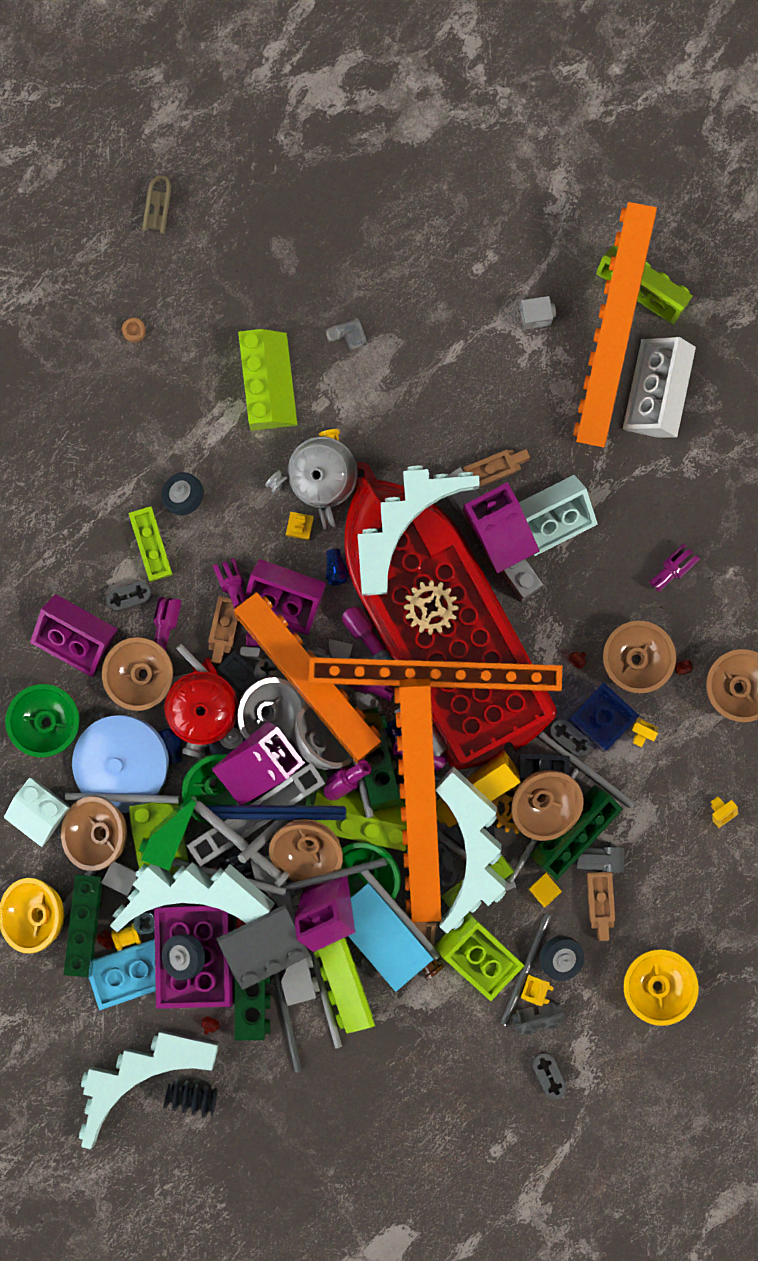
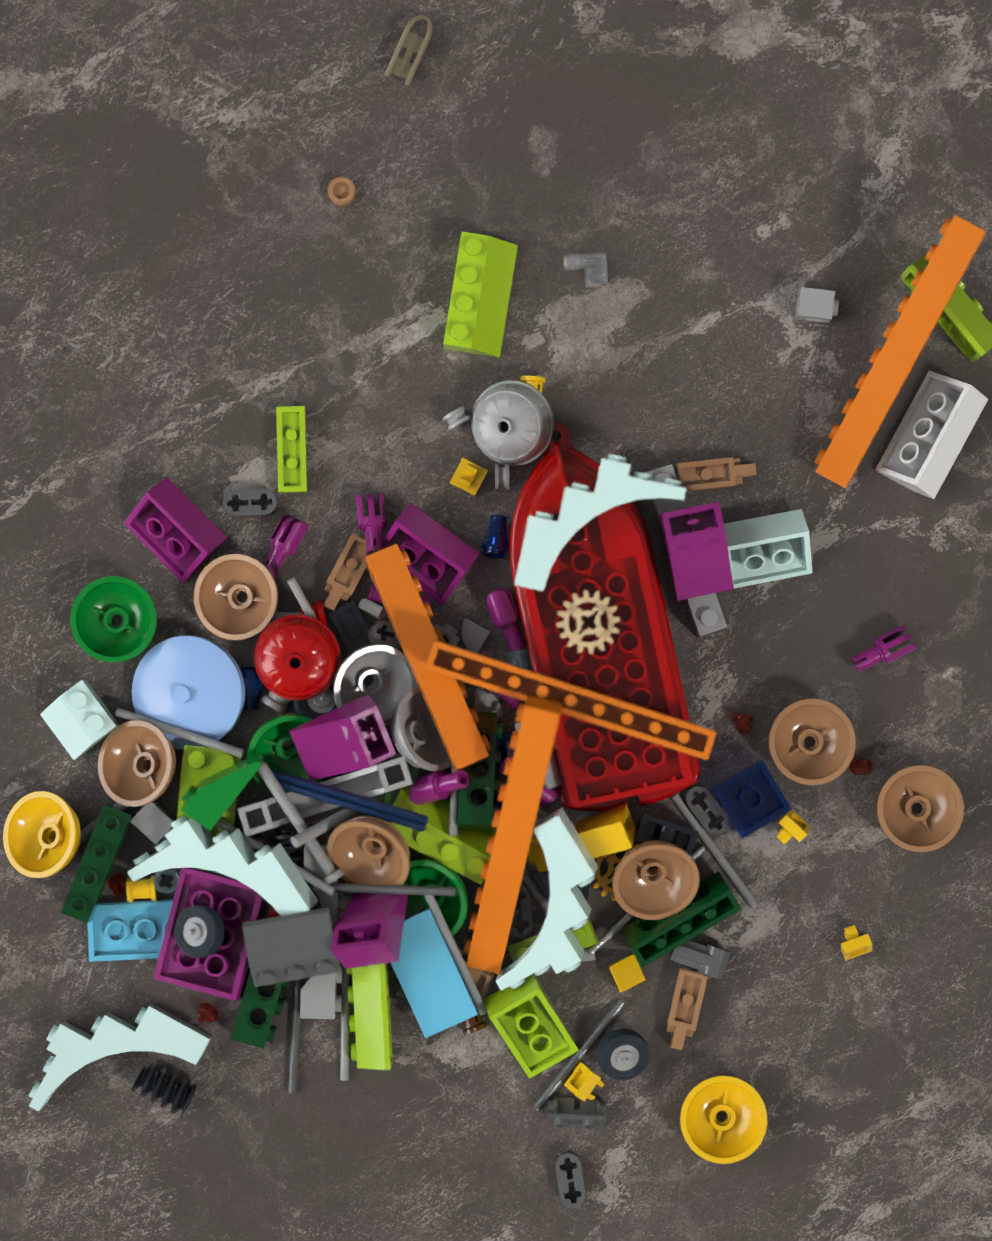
camera: 20 degrees right, 5 degrees up
(182, 493) = (344, 401): black wheel -> none

